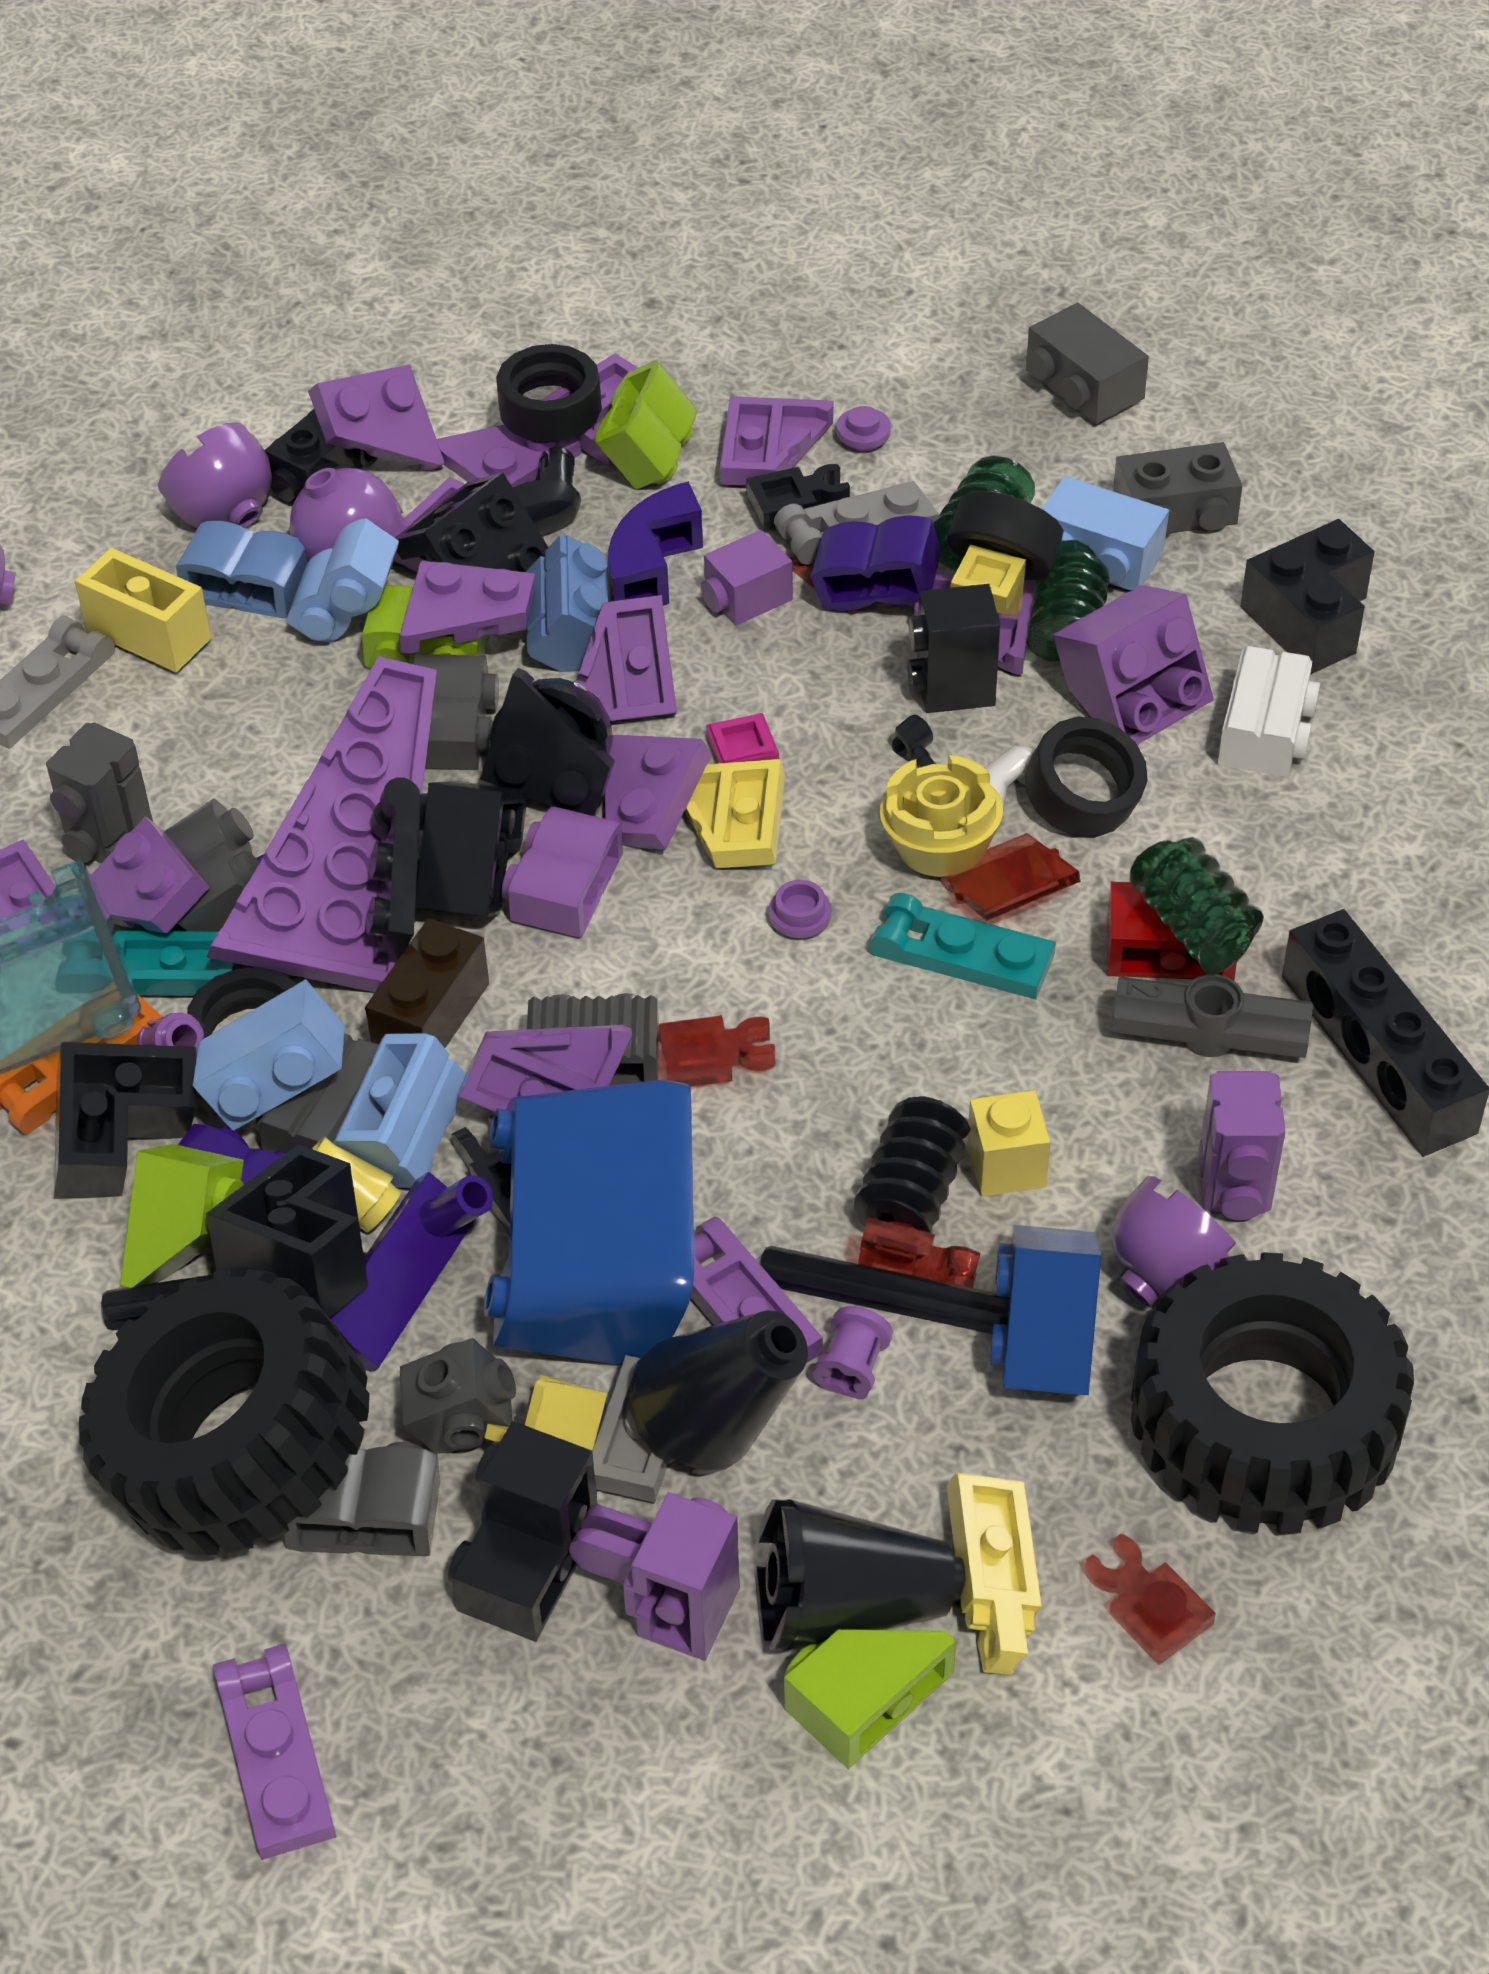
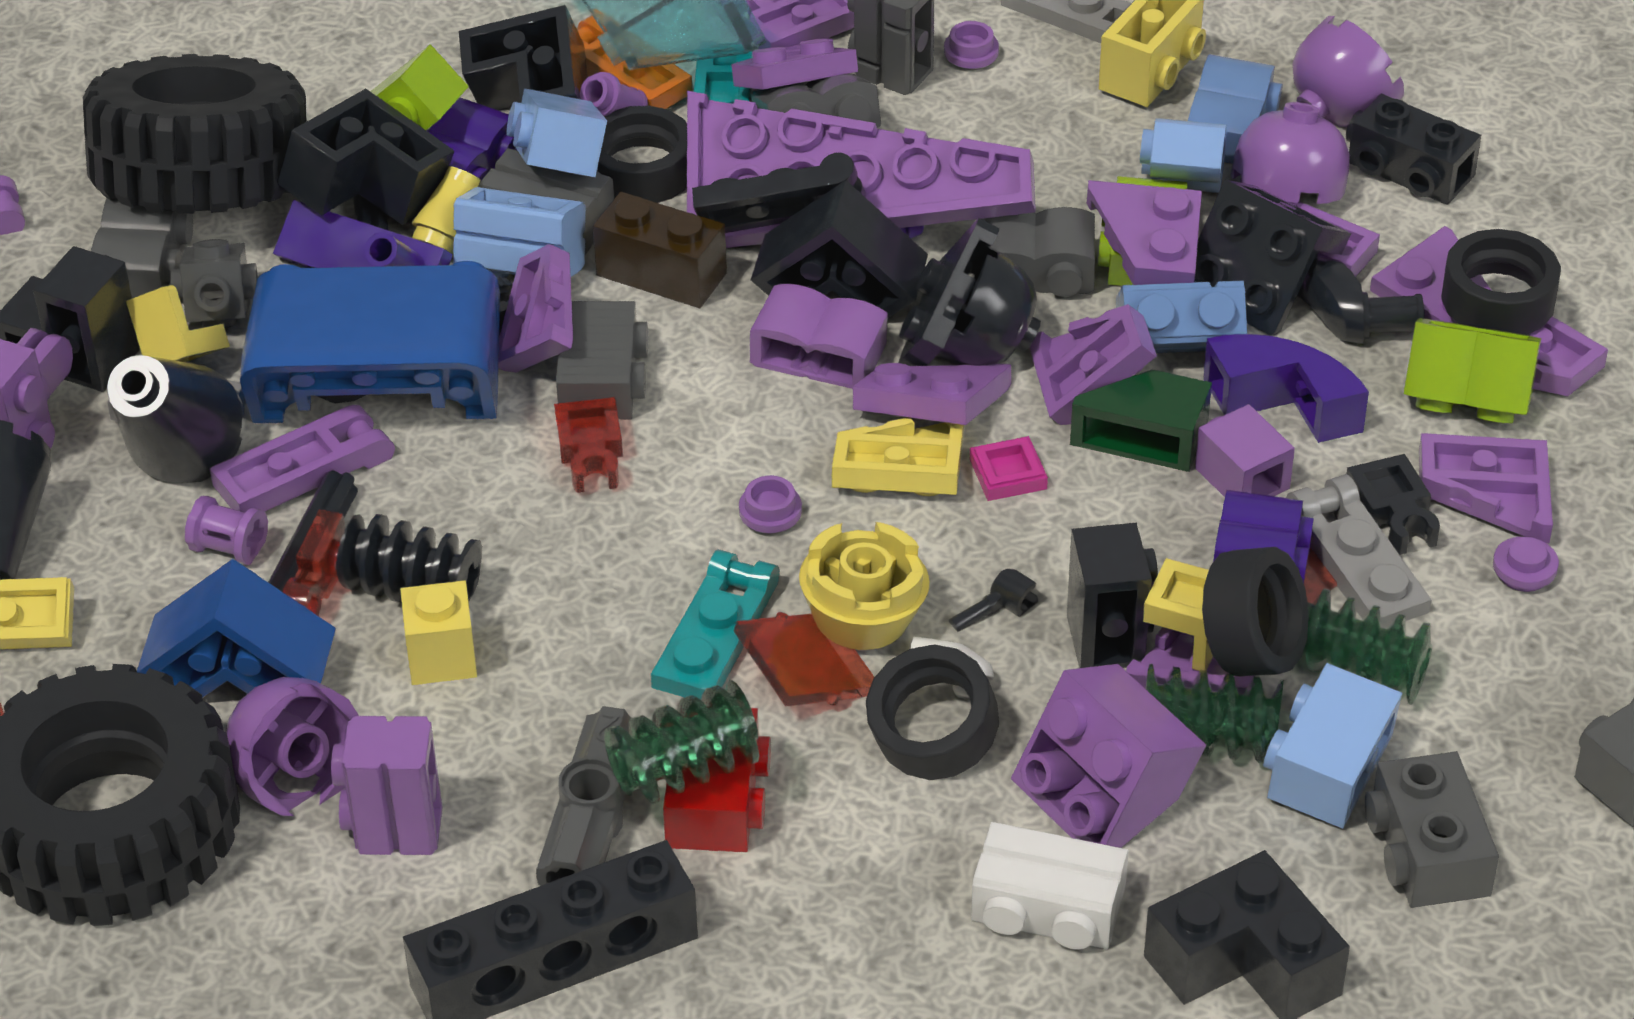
camera: 90 degrees right, 5 degrees down
(378, 414) = (1439, 162): medium lavender wing -> none
(700, 634) = (1144, 418): none -> dark green slope

